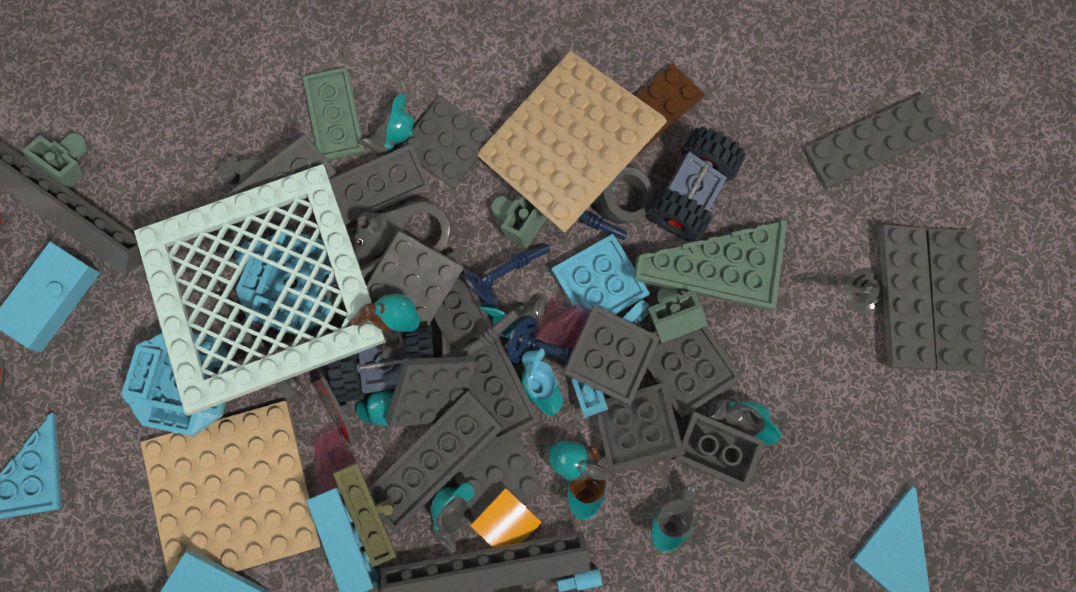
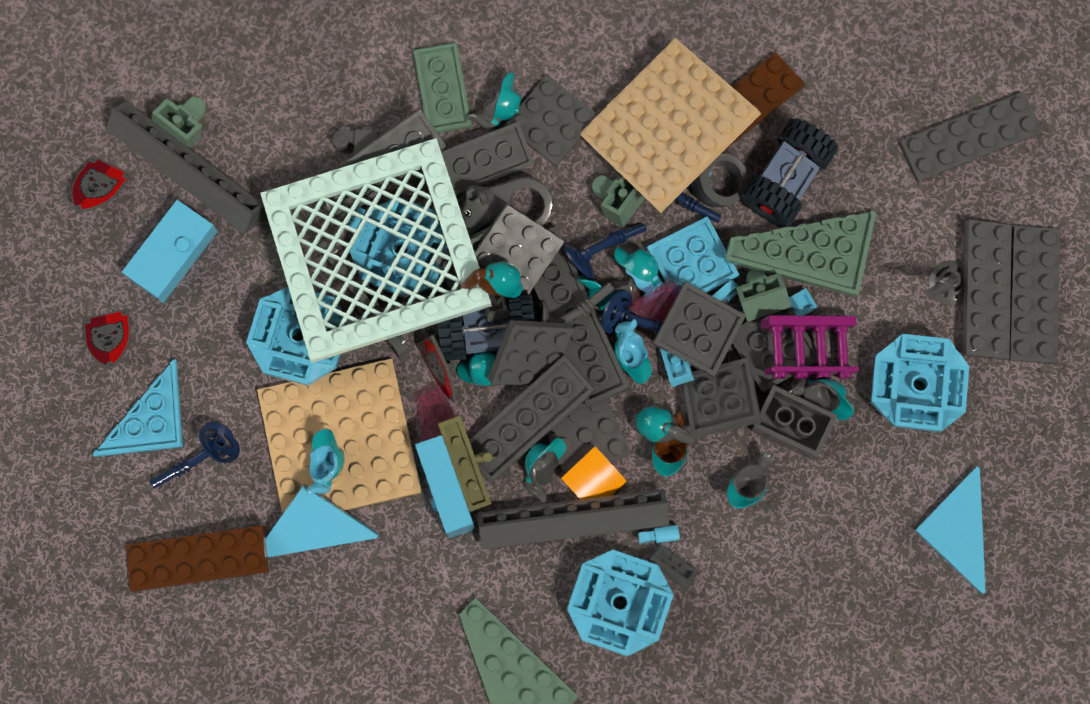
camera: 10 degrees right, 0 degrees up
(86, 517) = (213, 448): none -> dark blue dish
(211, 524) = (325, 462): none -> medium azure hair
(546, 290) = (641, 267): none -> teal hair
(717, 320) = (802, 303): none -> medium azure plate
(737, 344) = (819, 324): none -> magenta fence
(873, 399) = (934, 364): none -> medium azure piece

